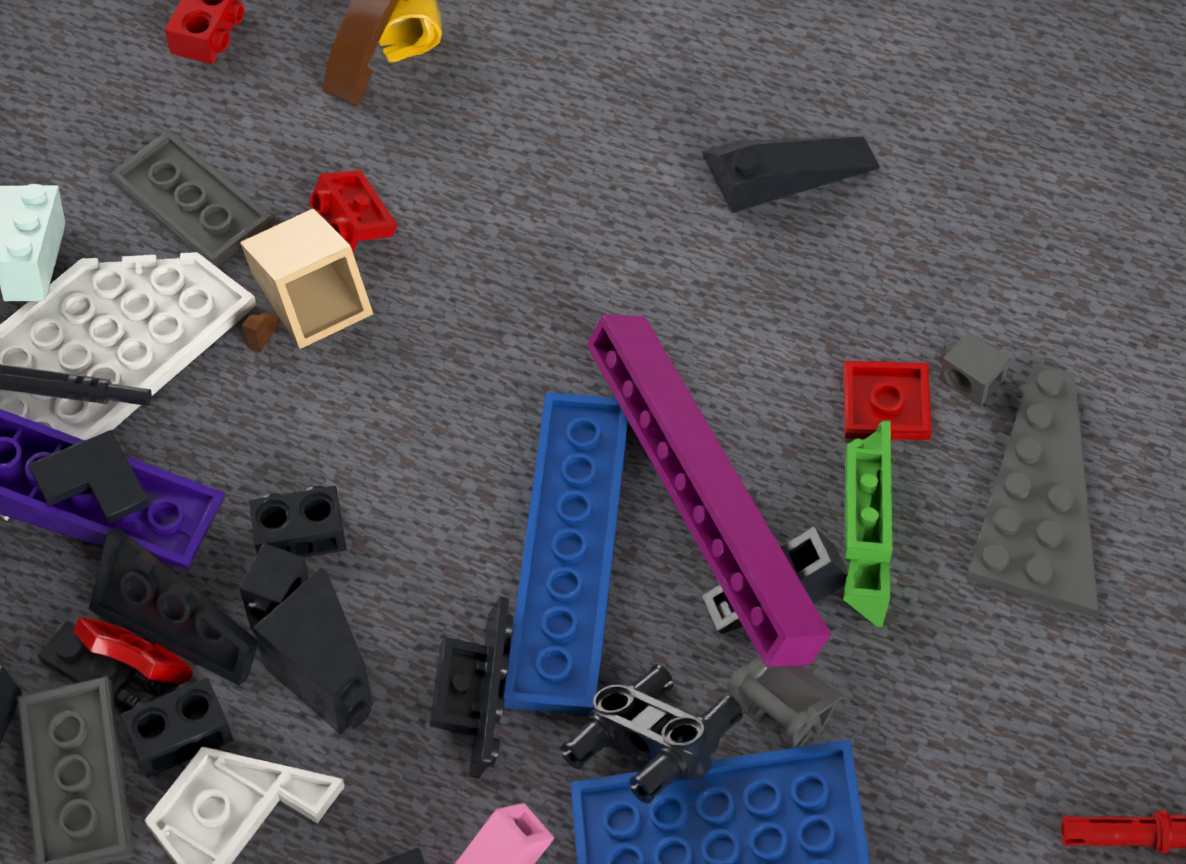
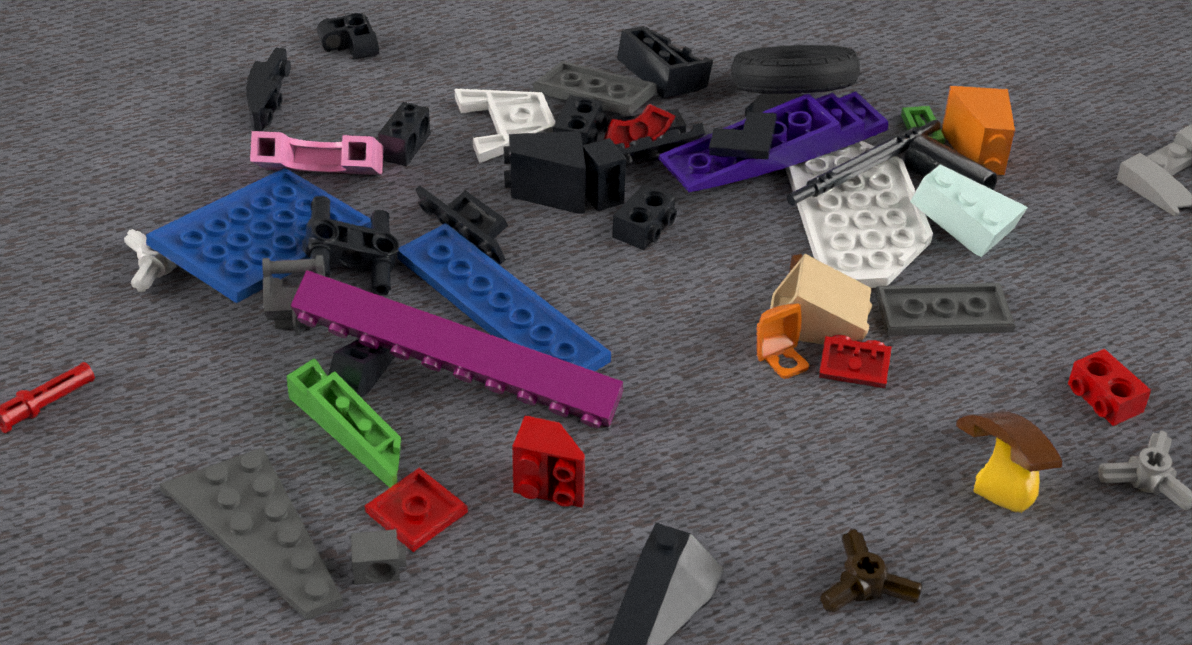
camera: 130 degrees right, 15 degrees down
(388, 272) = (778, 335): none -> orange piece
(617, 52) = (866, 578): none -> dark brown bush
(754, 313) = (548, 463): none -> red slope

